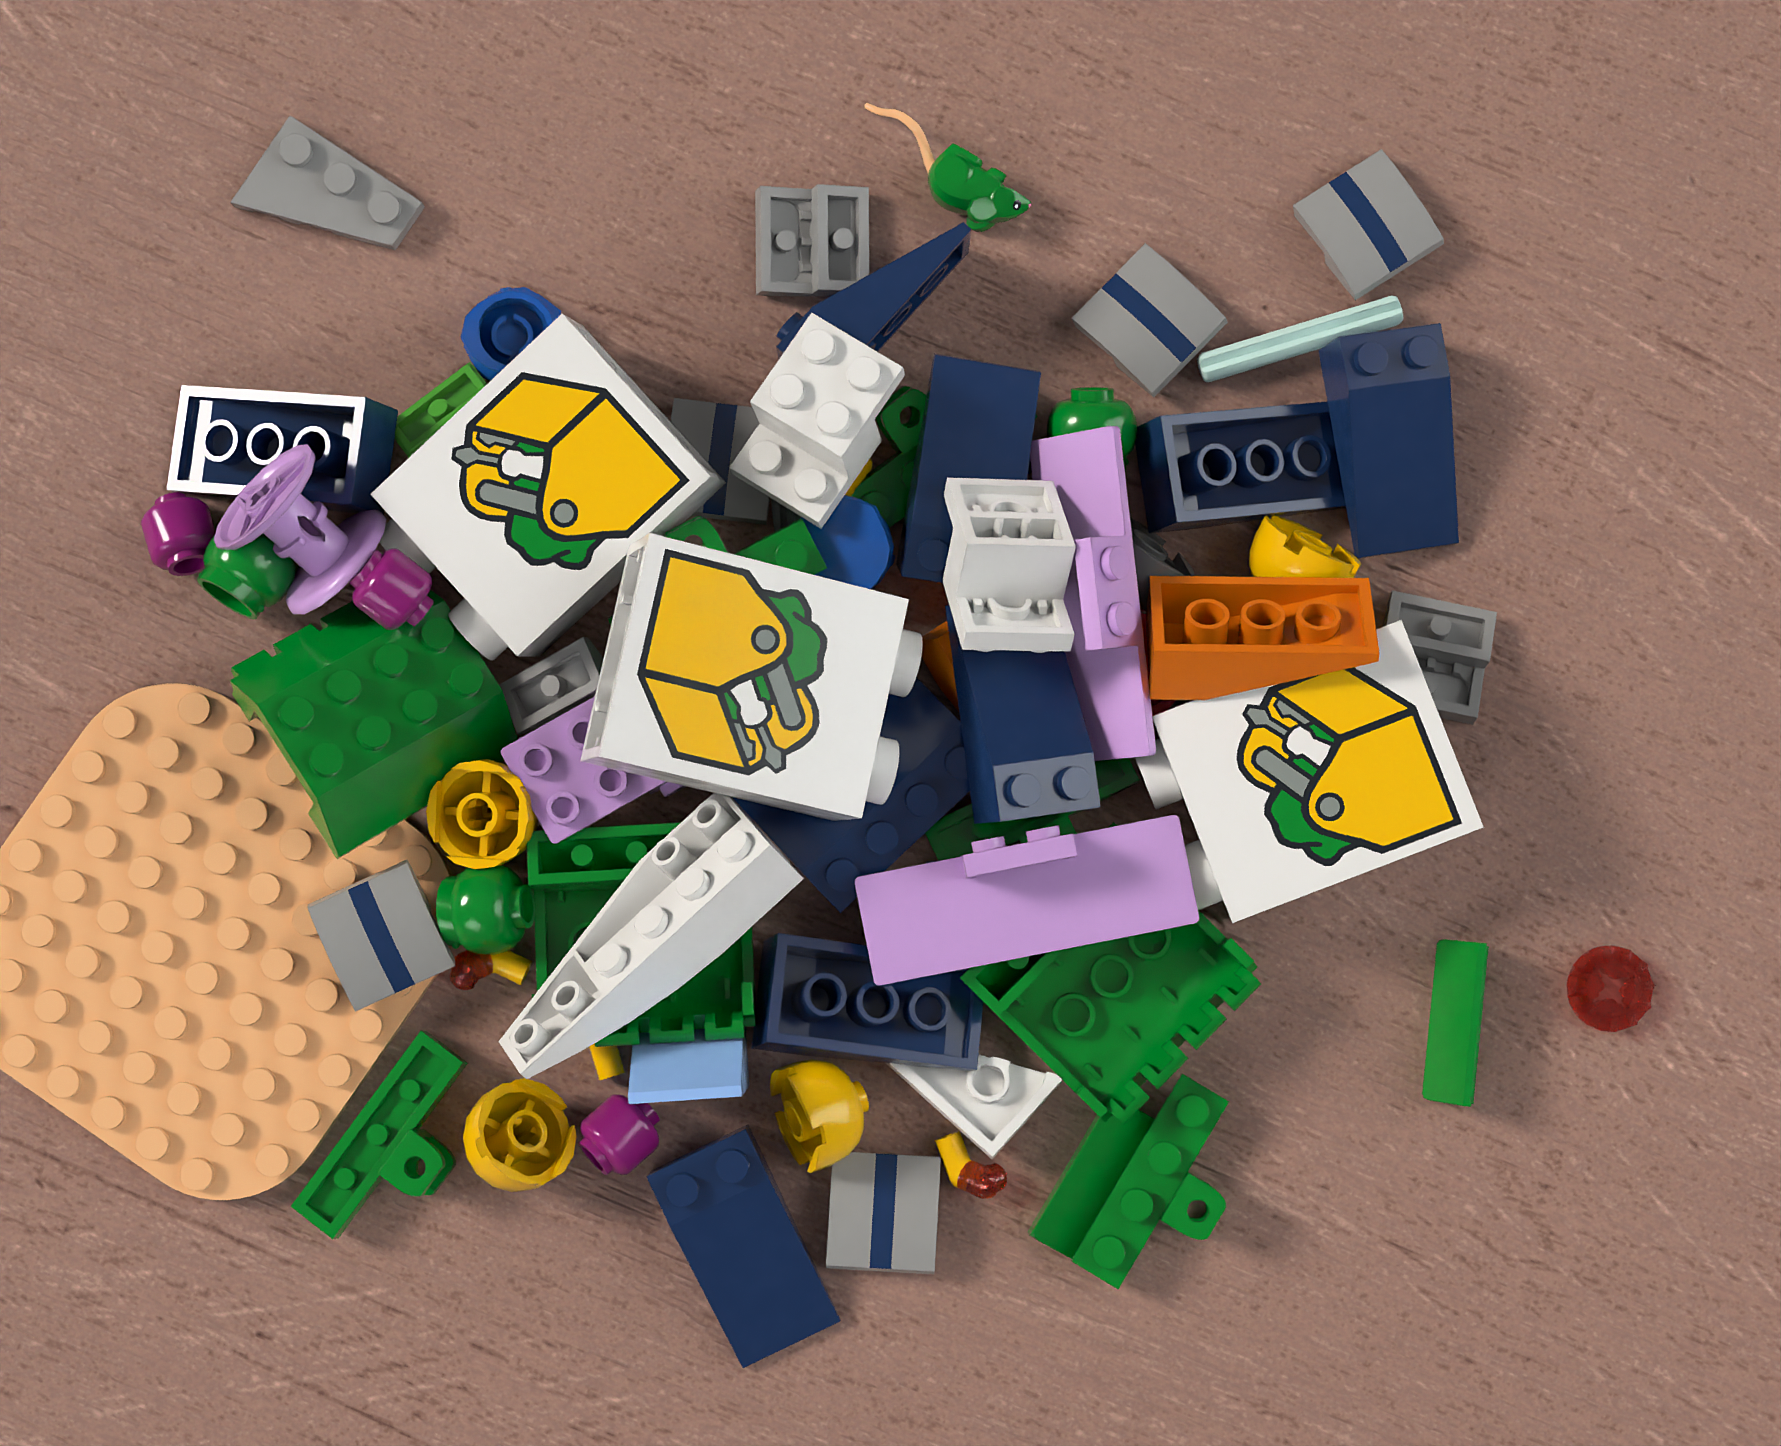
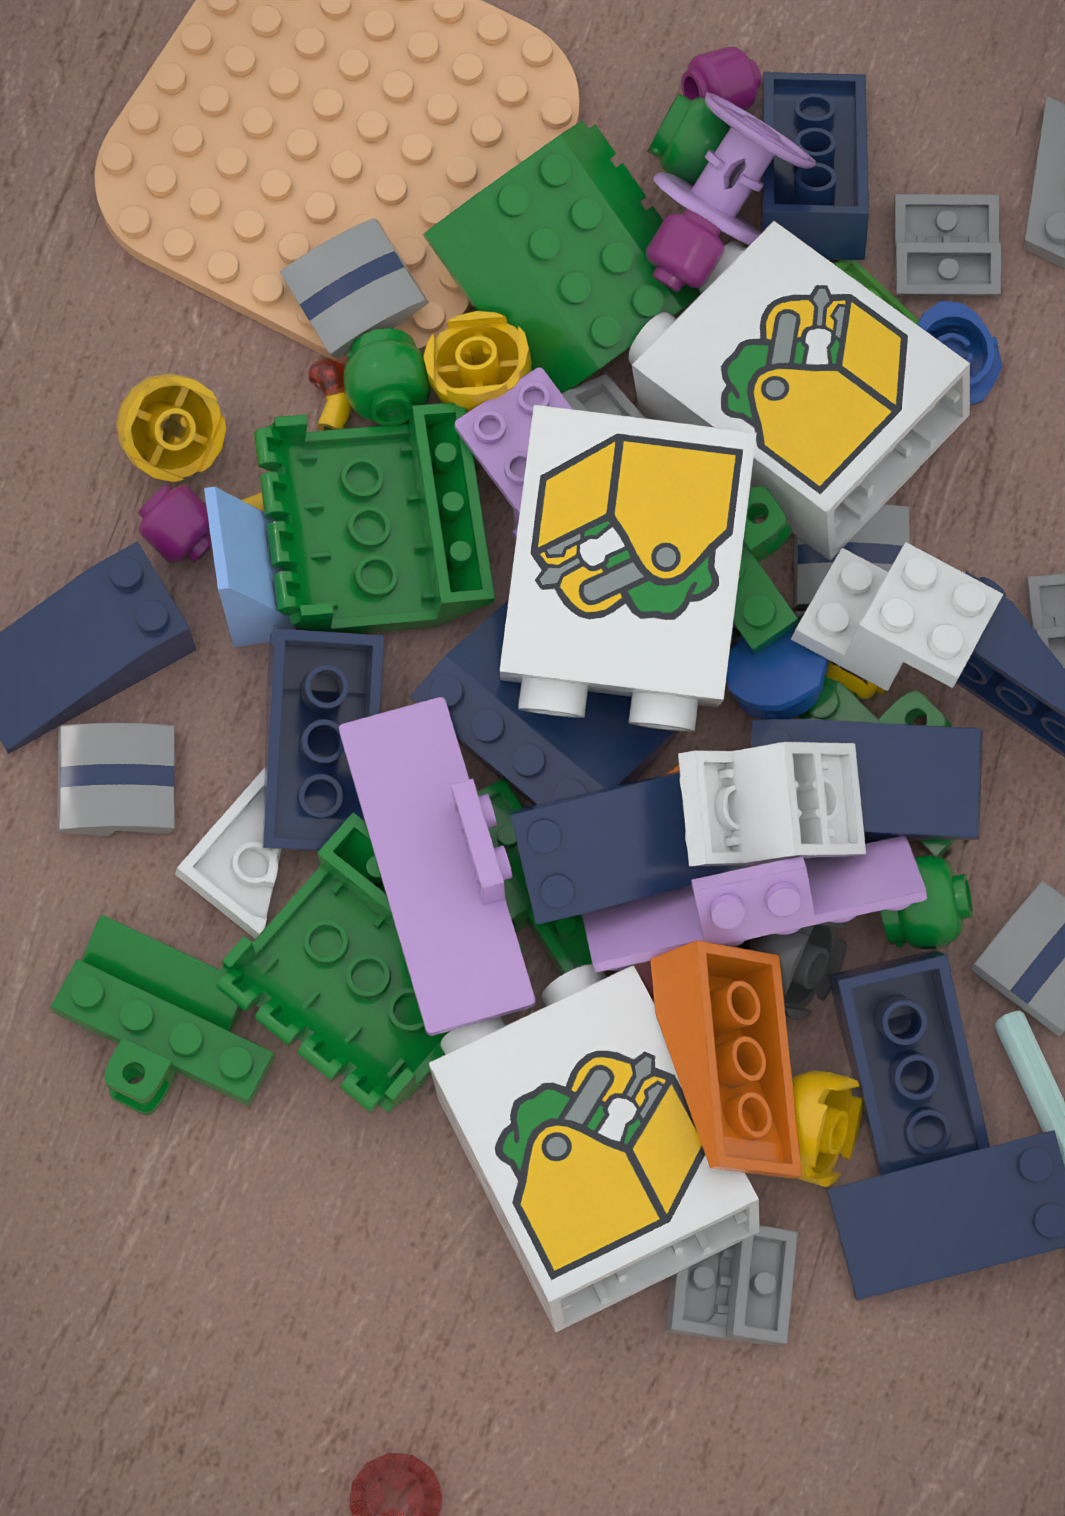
camera: 90 degrees right, 15 degrees down
(387, 325) = (947, 245): none -> light grey slope
(387, 1140) = (159, 318): green plate -> none
(654, 933) = (375, 518): white wedge -> none
(820, 1112) = (213, 705): yellow cylinder -> none
(967, 1174) = (158, 858): arm -> none
(1455, 1022) = (347, 1335): green slope -> none

